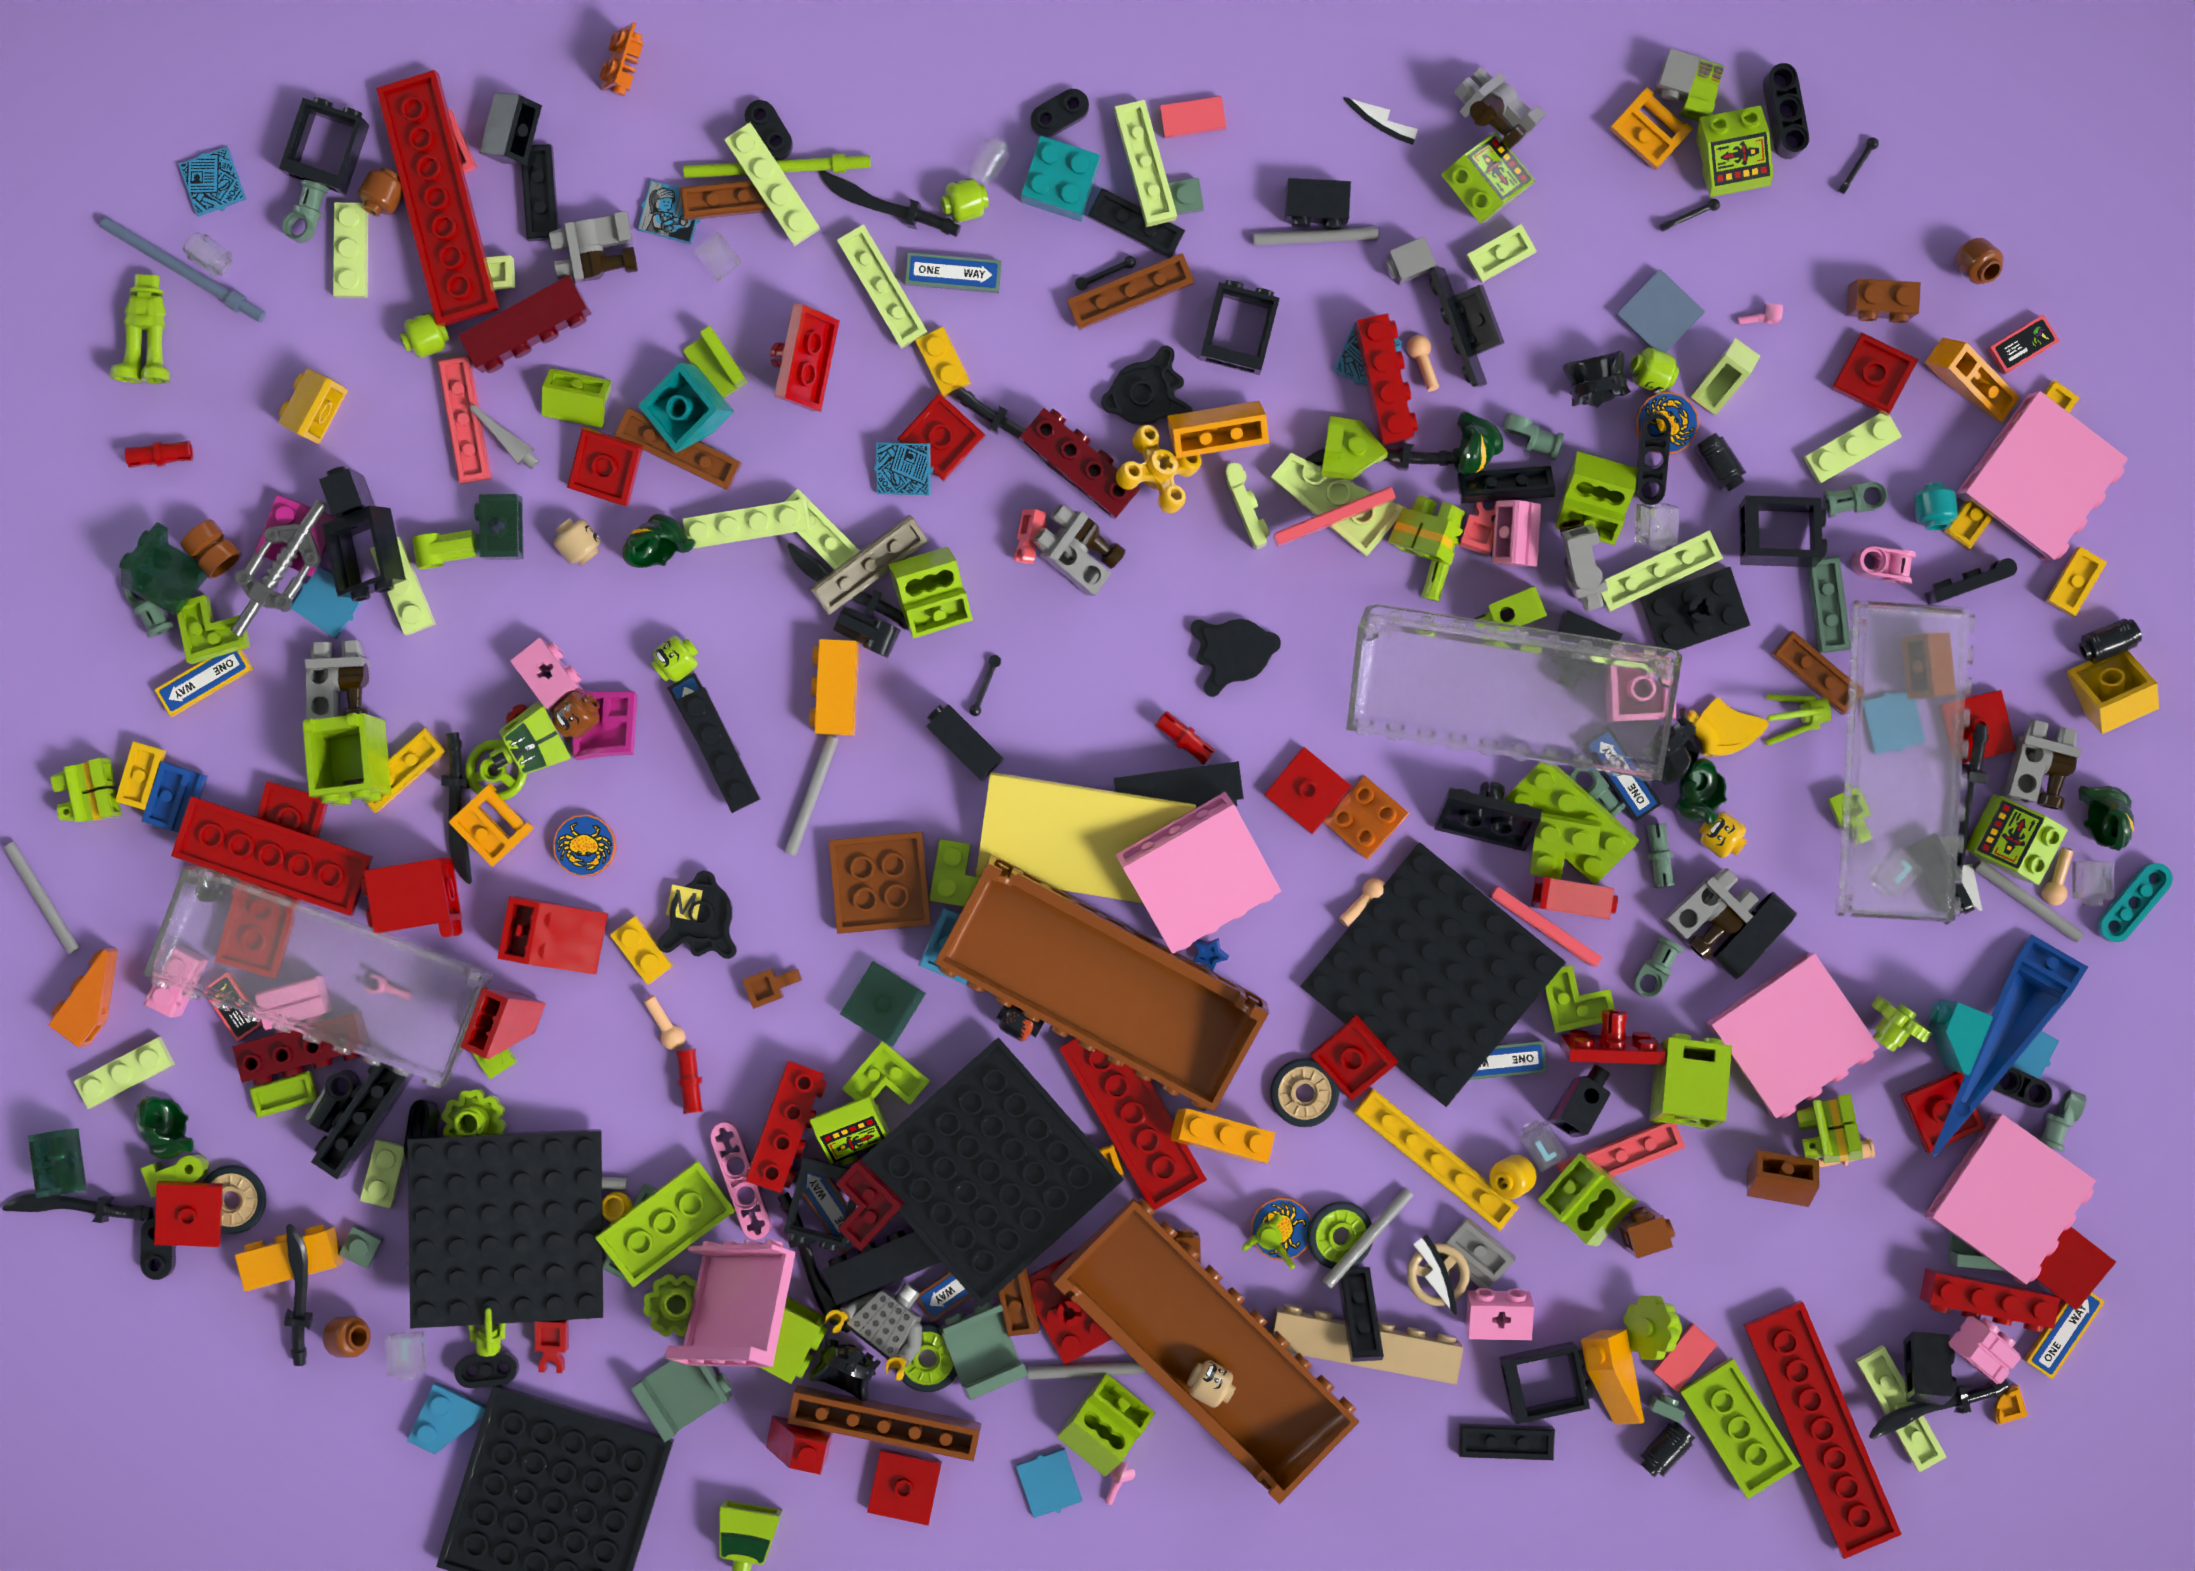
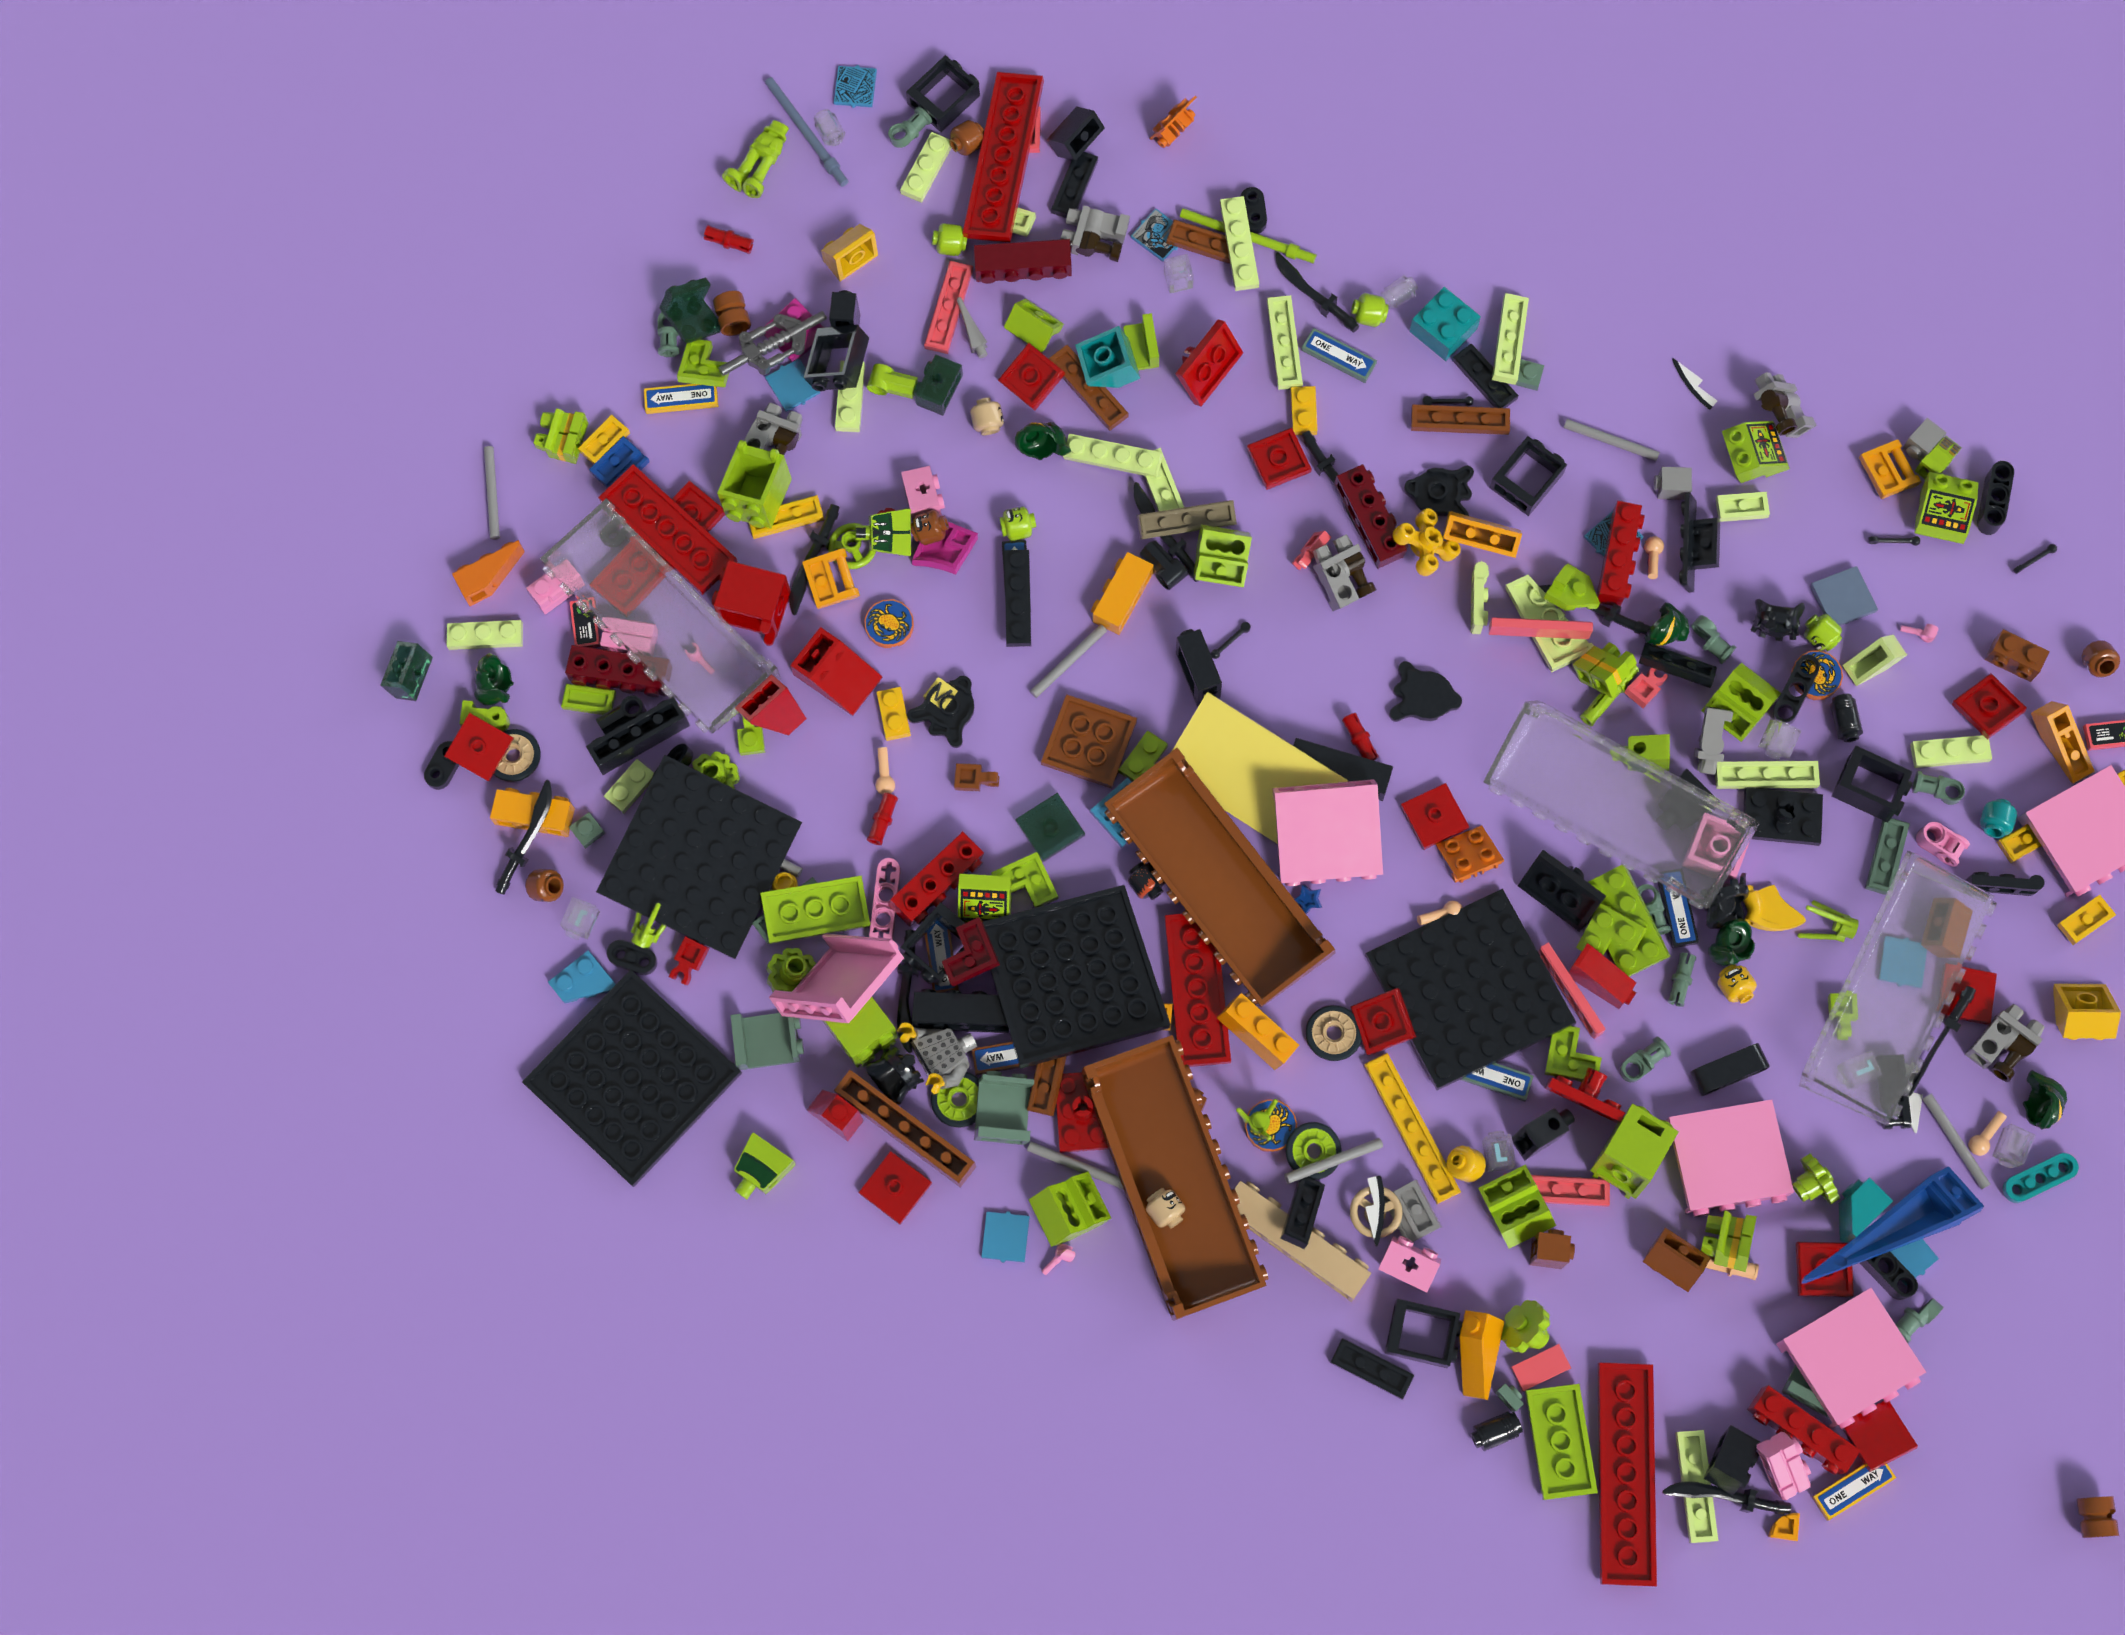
camera: 30 degrees right, 15 degrees down
(102, 1209) = (419, 720): black sword -> none
(903, 468) = (1242, 467): dark azure piece -> none
(1061, 114) = (1464, 283): black plate -> none
(1193, 117) = (1558, 325): coral tile -> none
(1317, 202) = (1623, 416): black brick -> none
(1516, 533) = (1671, 700): bright pink brick -> none
(1712, 903) = (1709, 1031): light grey hips -> none
(1813, 670) = (1855, 895): dark orange tile -> none
(2016, 839) = (1964, 1086): lime piece -> none
(2110, 640) = (2096, 973): black head -> none

